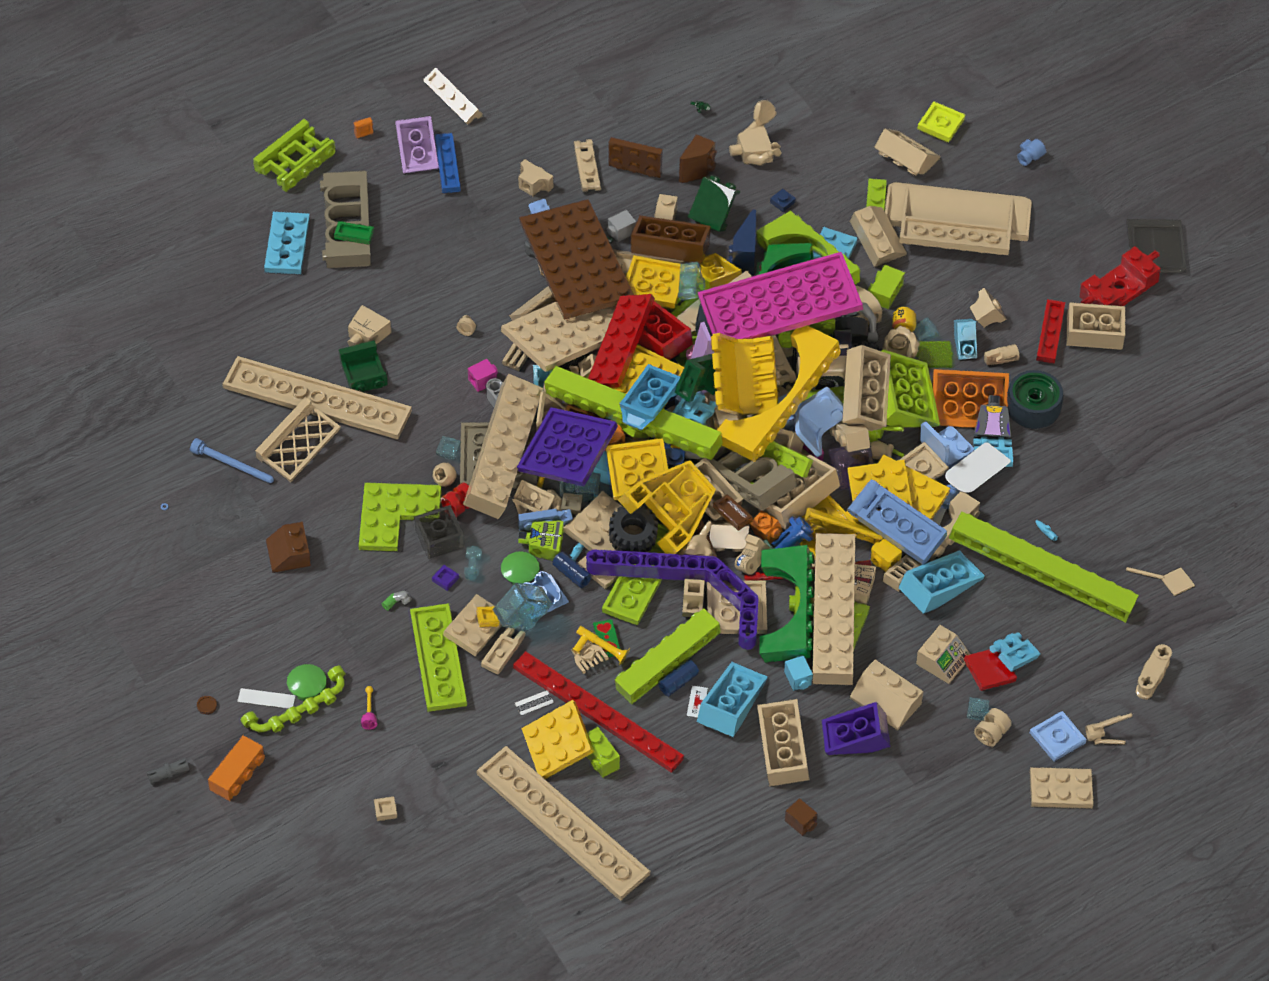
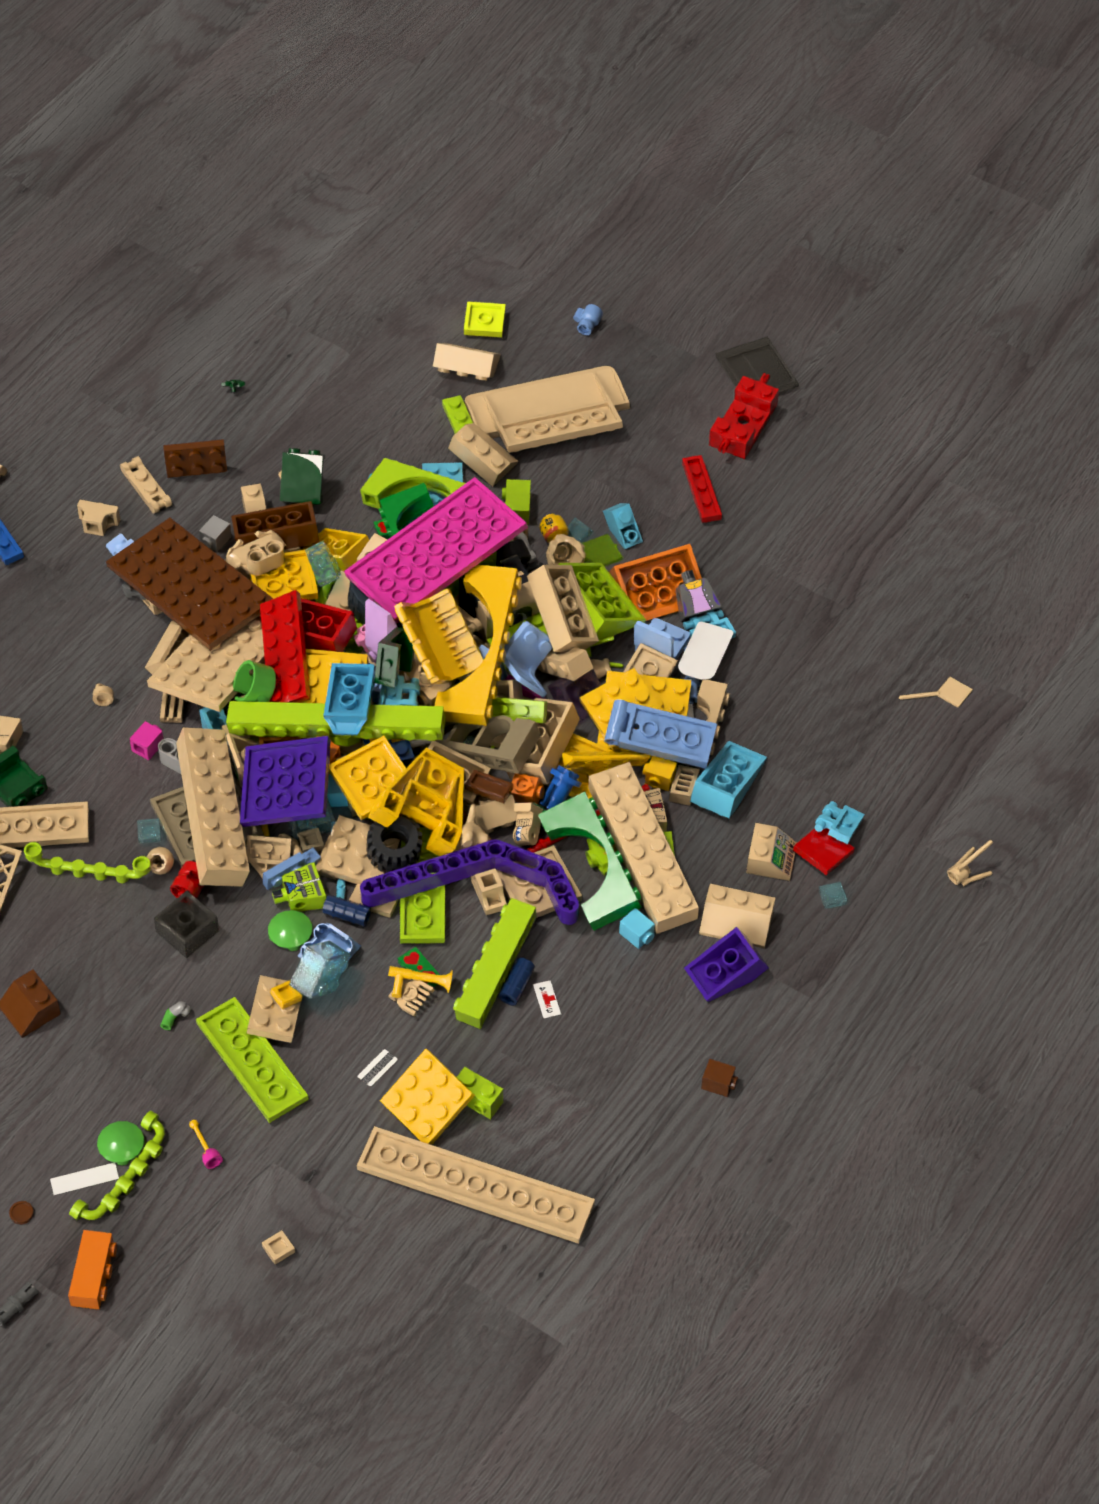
camera: 25 degrees left, 0 degrees up
(388, 504) = (113, 918): lime plate -> none
(425, 471) = (141, 866): none -> lime bar
(445, 577) = (215, 970): dark purple tile -> none
(474, 554) = (234, 933): clear light blue bar -> none
(502, 651) = (317, 1026): tan hinge -> none
(584, 357) = (256, 686): none -> bright green piece
(599, 712) = (451, 1050): red plate -> none
(643, 256) = (263, 558): none -> tan piece
(697, 159) = (262, 438): reddish brown slope -> none
(731, 699) = (583, 982): medium azure slope -> none
(743, 248) = (357, 513): dark blue slope -> none
(754, 142) = (307, 402): tan torso -> none
(782, 200) = (366, 451): dark blue plate -> none
(783, 742) = (661, 1007): tan brick -> none
(987, 309) = (630, 488): tan brick -> none
(992, 727) = (859, 907): tan wheel -> none
(1002, 355) = (667, 529): tan hinge -> none
(1034, 399) = (725, 560): wheel -> none
(1043, 566) = (823, 725): lime brick -> none
(1046, 529) = (803, 688): medium azure helmet -> none
(1058, 736) = (924, 891): light blue tile -> none
(1061, 787) = (956, 943): tan plate -> none
(1096, 326) = (744, 467): tan brick -> none
(1153, 671) = (982, 790): tan piece -> none

